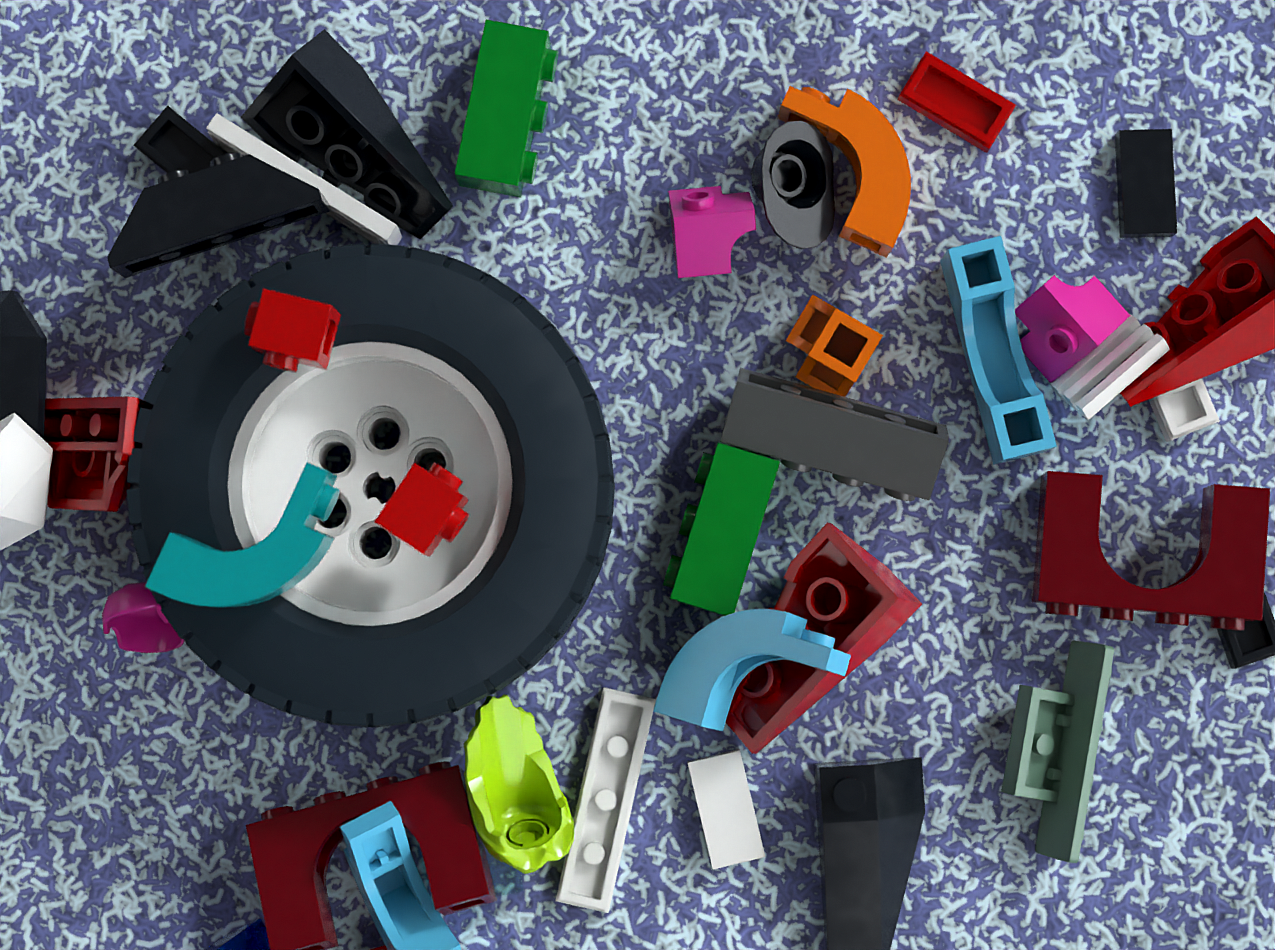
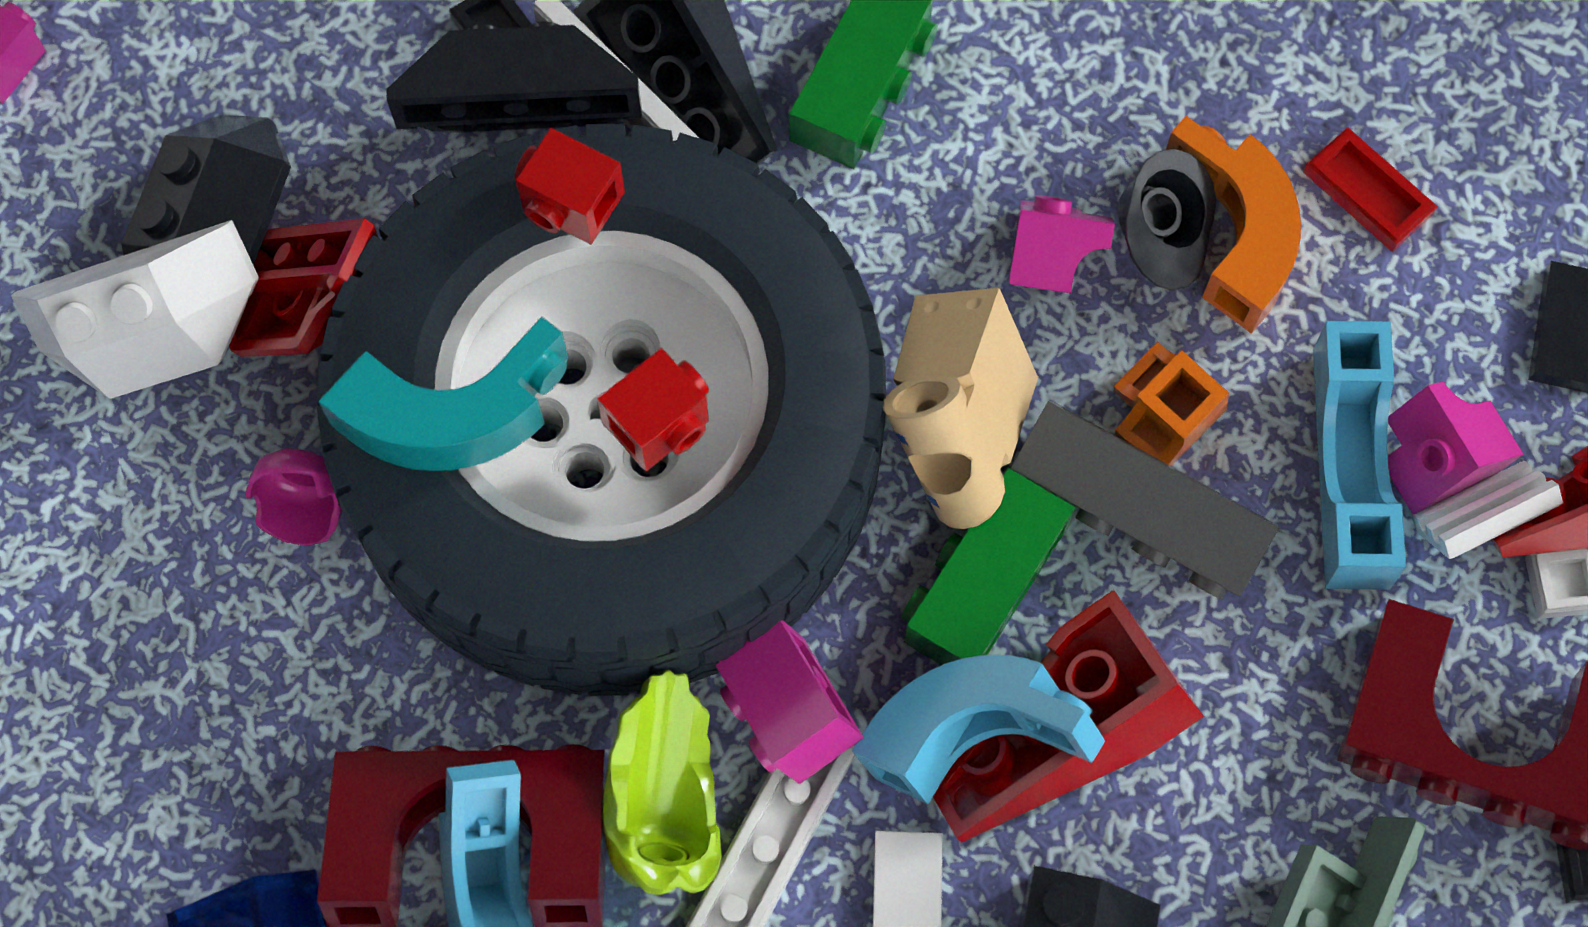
camera: 15 degrees right, 15 degrees down
(592, 686) = (787, 704): none -> dark pink brick
(665, 401) = (961, 400): none -> tan piece

